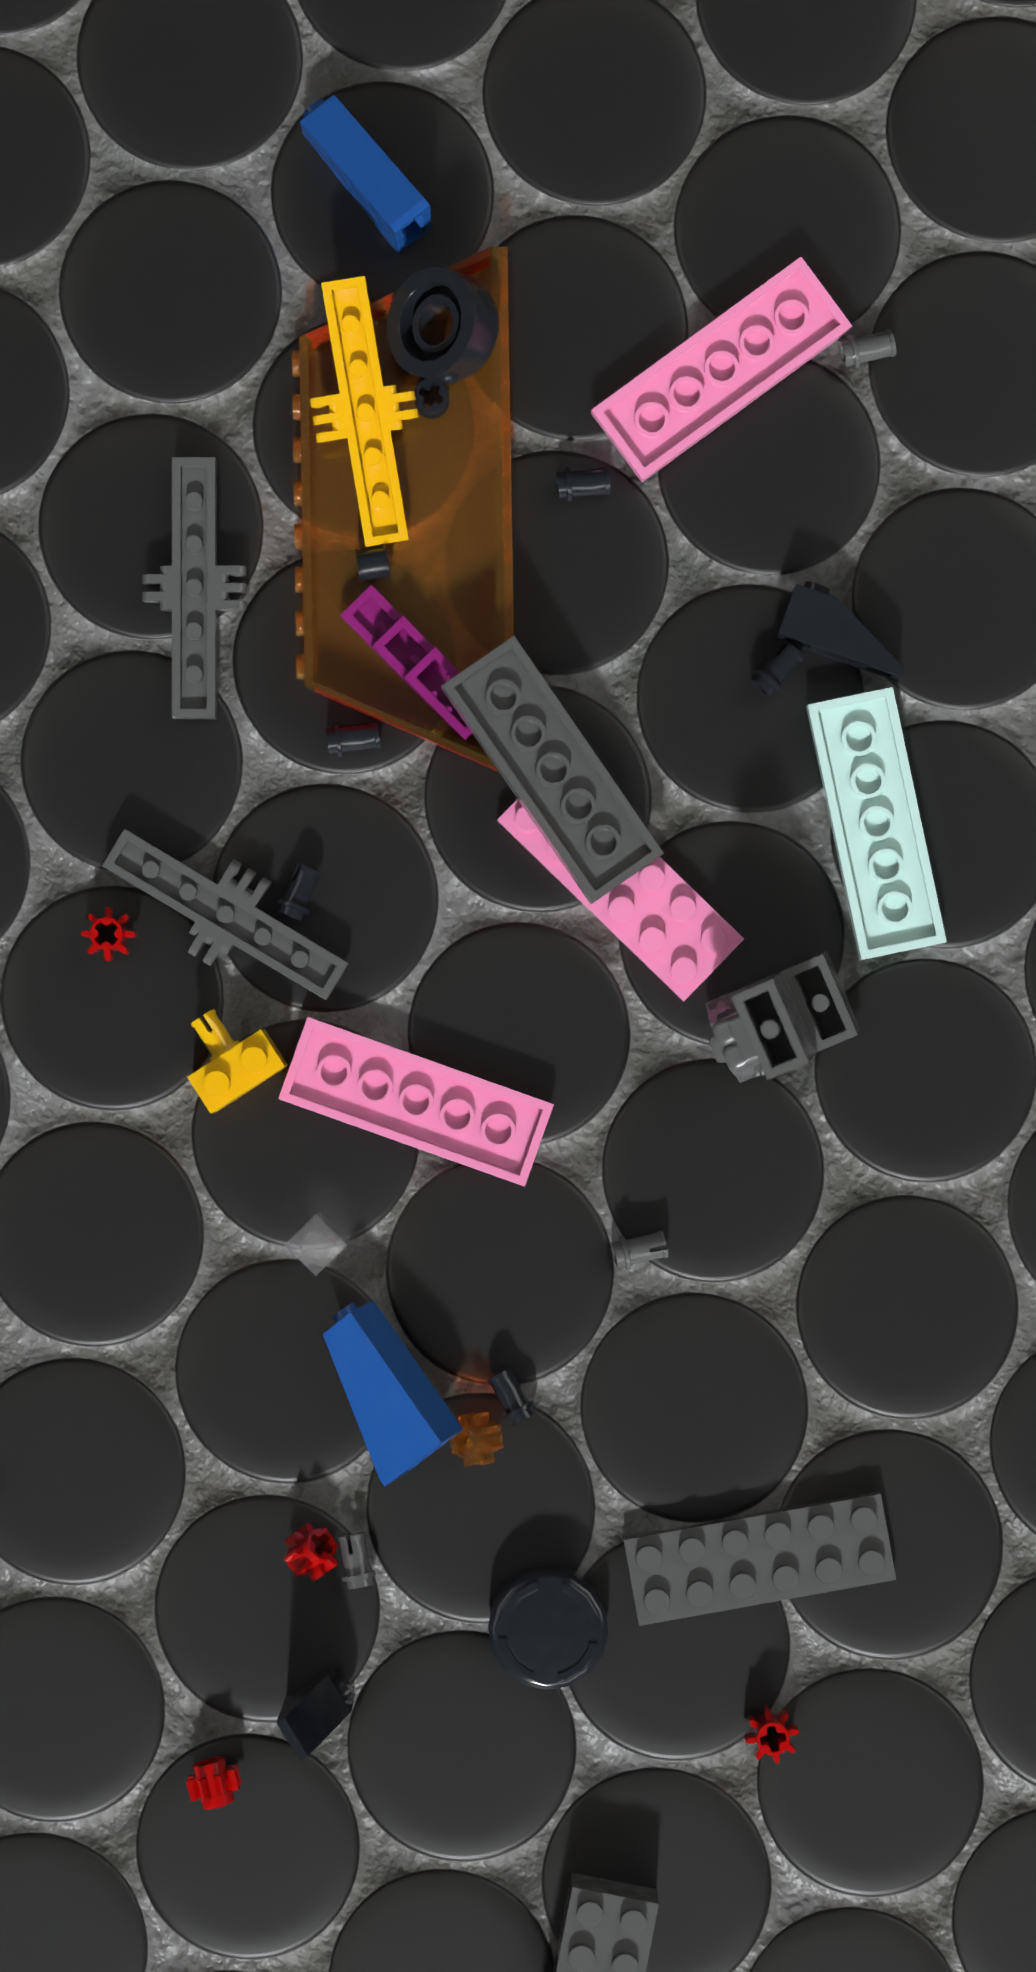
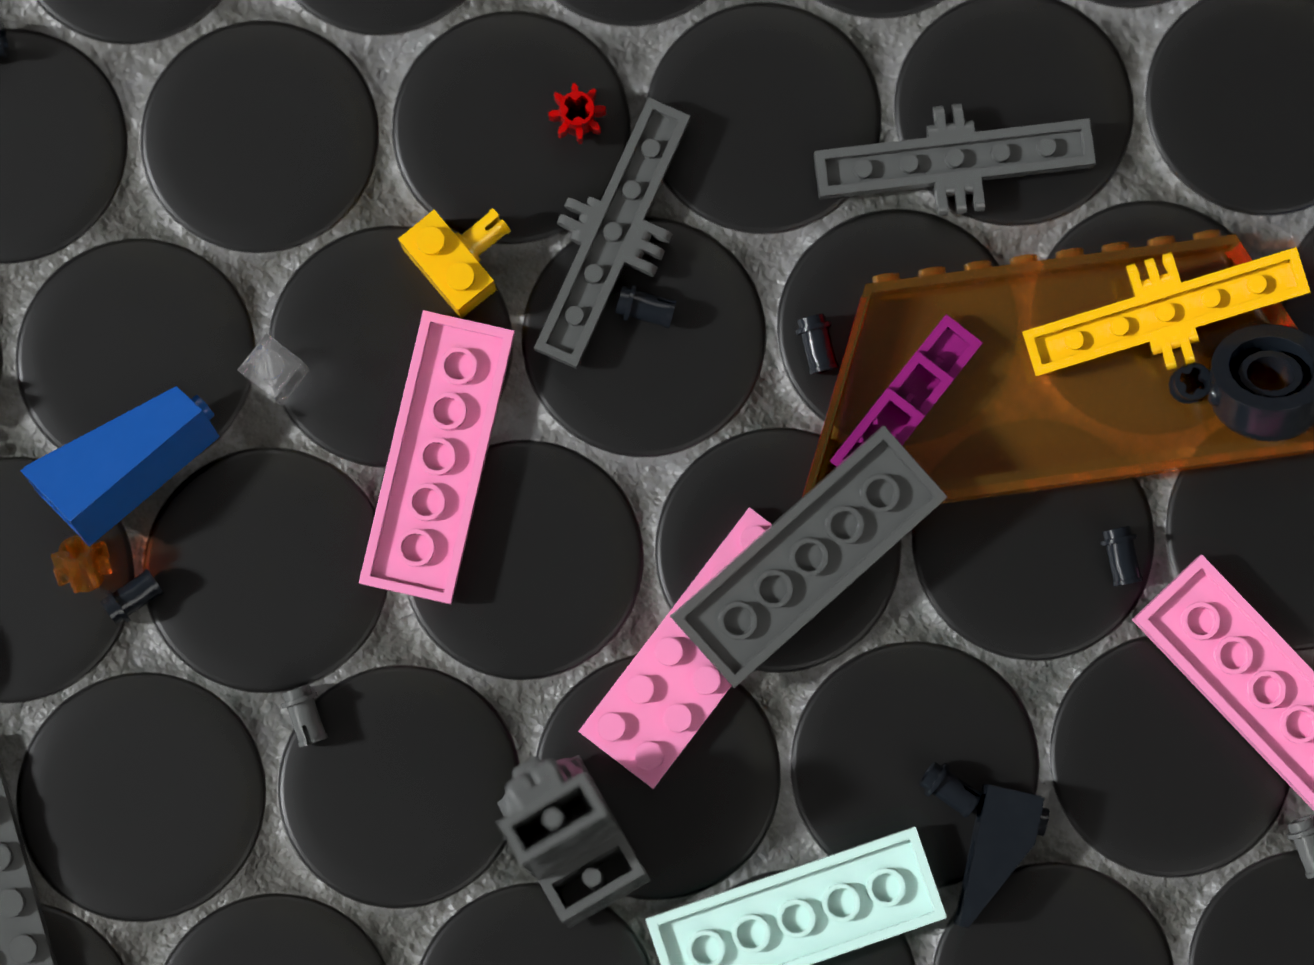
camera: 80 degrees right, 5 degrees down
(373, 563) = (1005, 342): black axle -> none

